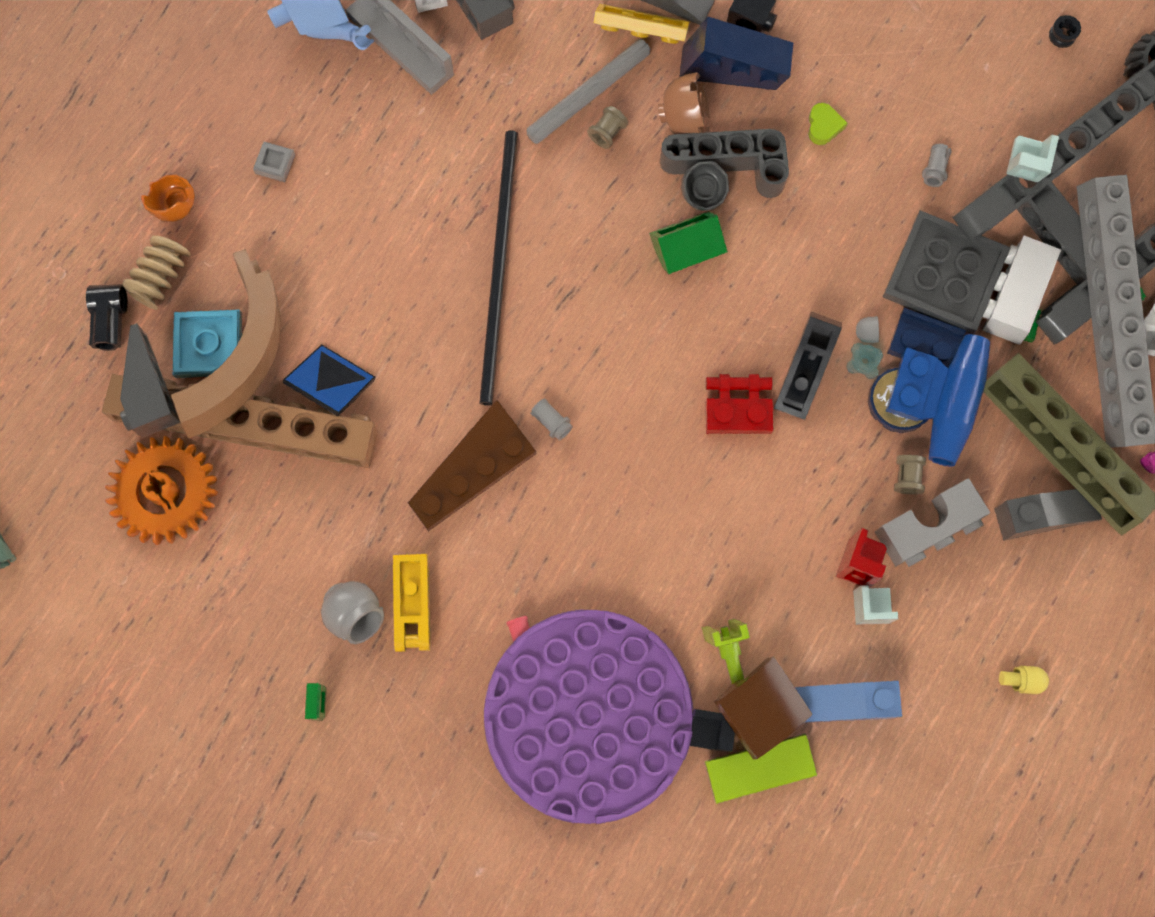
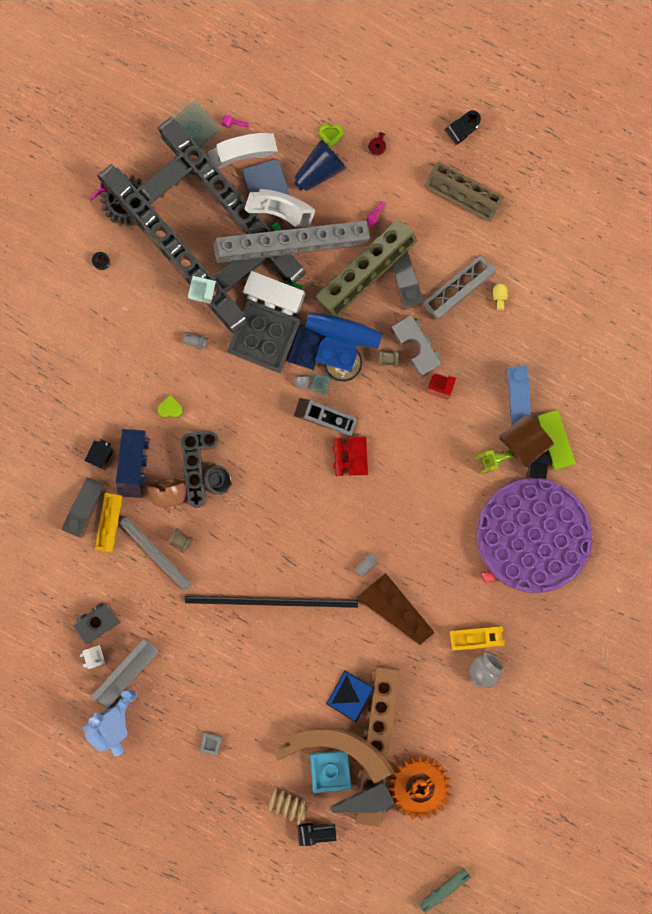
camera: 90 degrees left, 10 degrees up
(169, 198) = (240, 804): orange hair -> none
(315, 702) = (535, 686): green tile -> none
(689, 242) = (252, 489): green brick -> none
(873, 606) = (465, 379): light aqua panel -> none
(1031, 611) = (464, 292): none -> light grey fence

